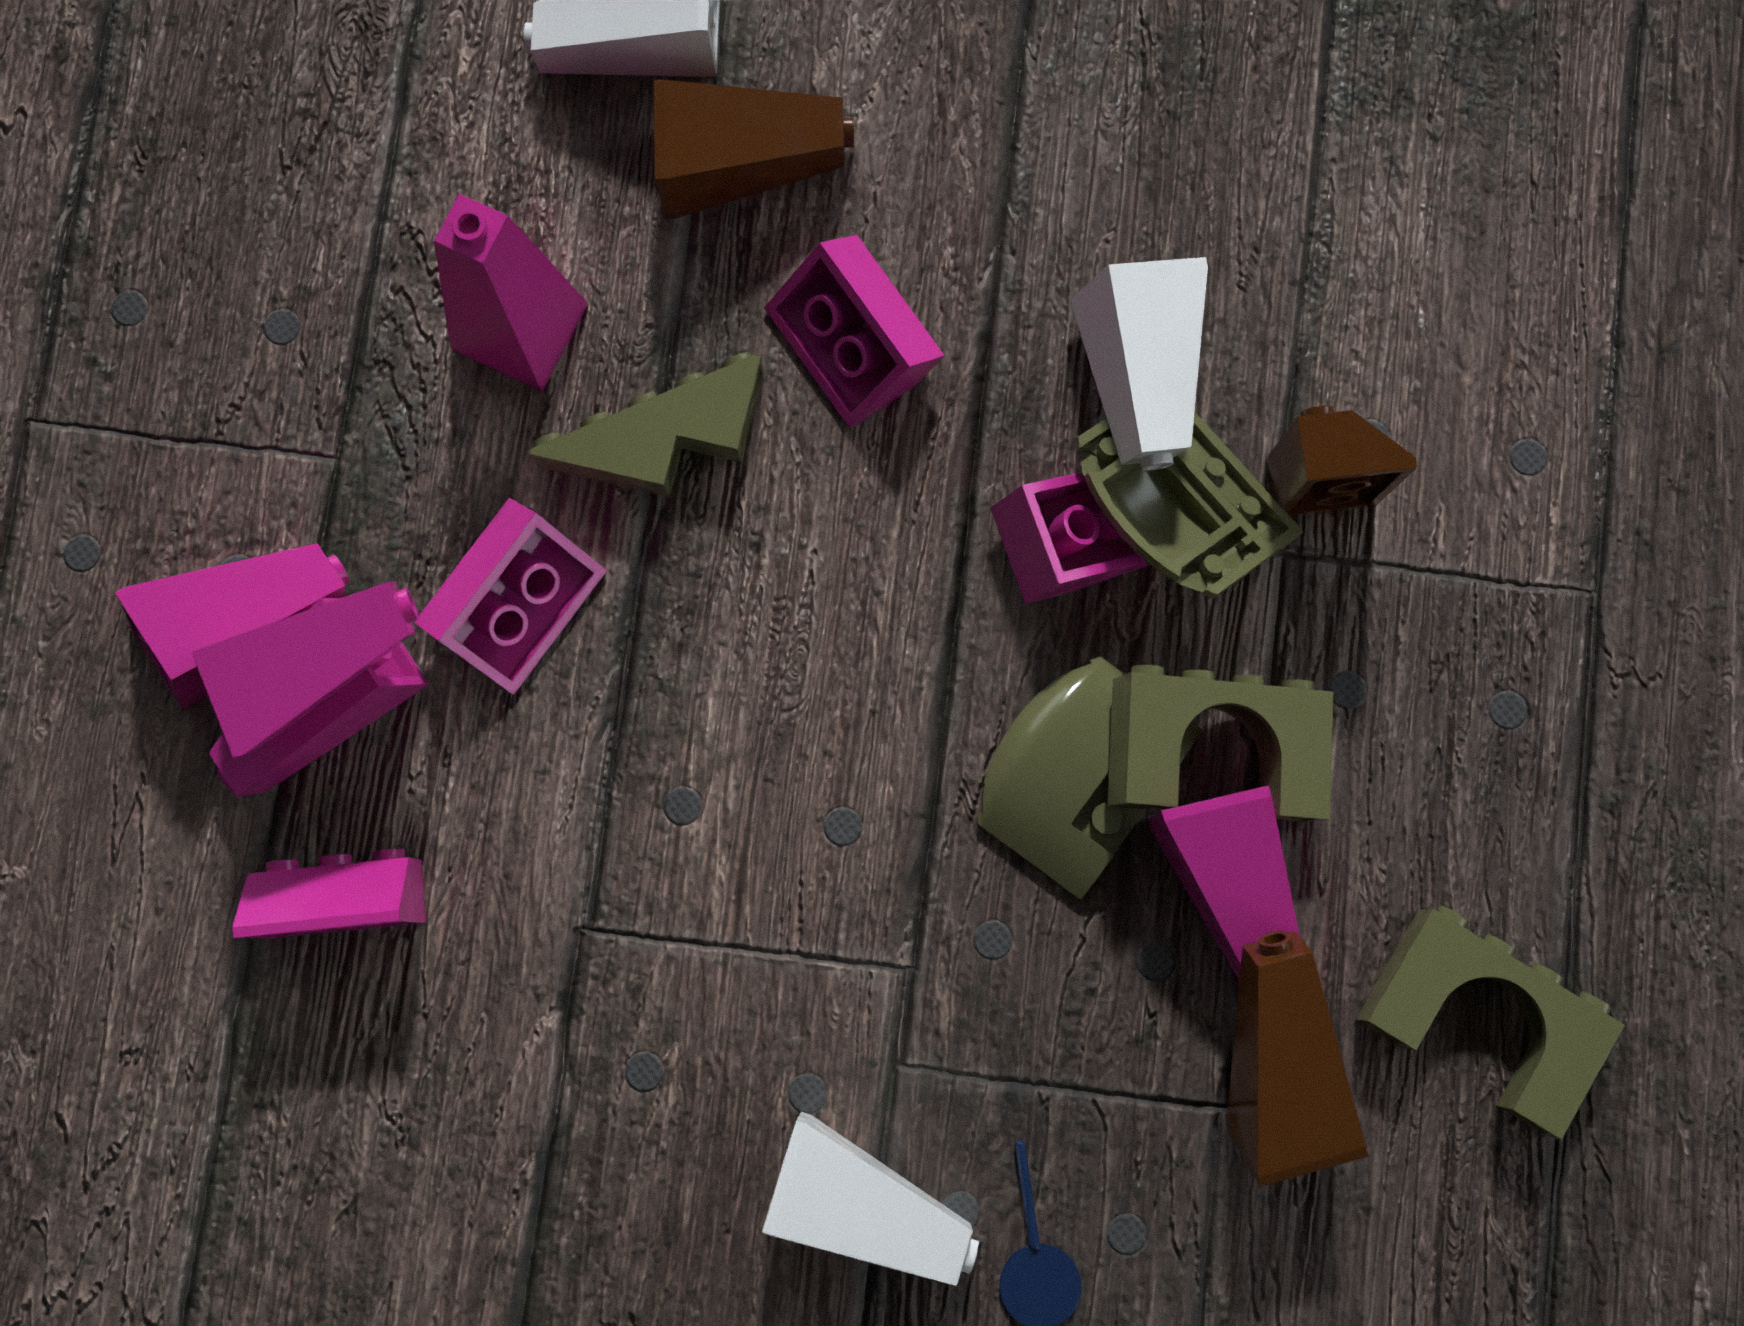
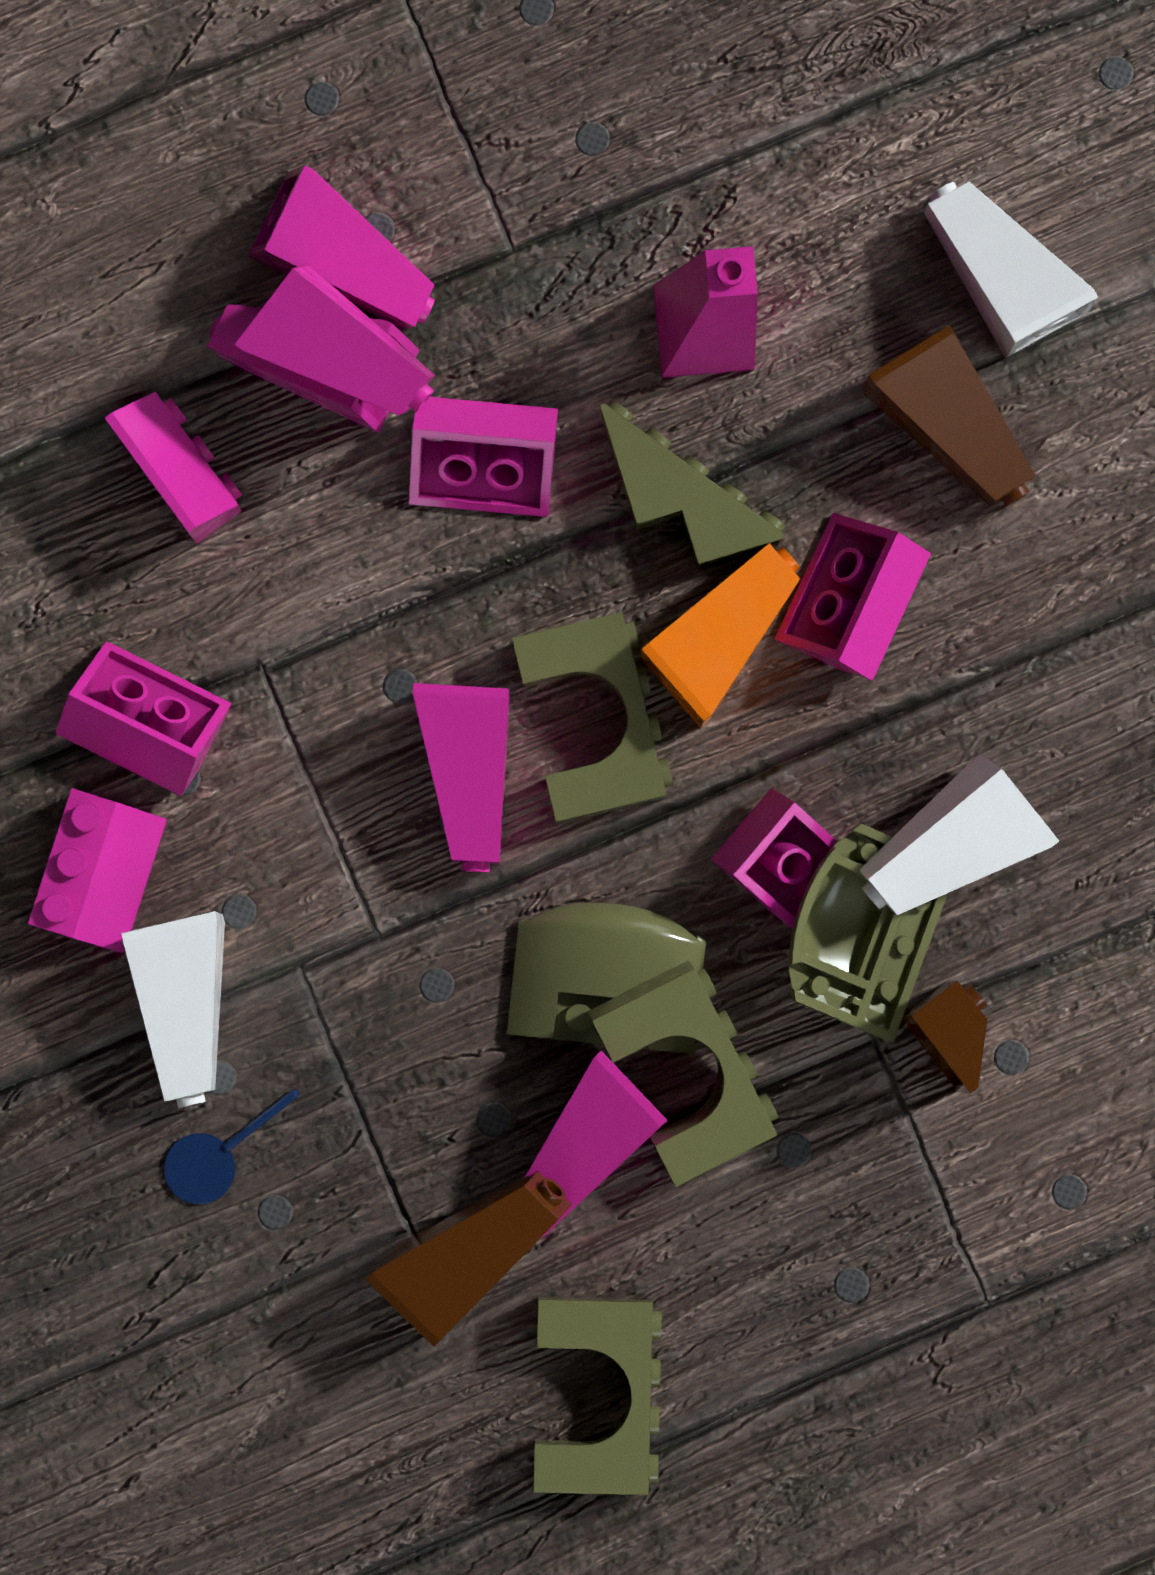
camera: 55 degrees right, 5 degrees up
(560, 1079) = (142, 718): none -> dark pink slope
(683, 1216) = (97, 870): none -> dark pink slope
(768, 589) = (604, 652): none -> olive arch
(790, 777) = (467, 760): none -> dark pink slope
(821, 480) = (716, 637): none -> orange slope

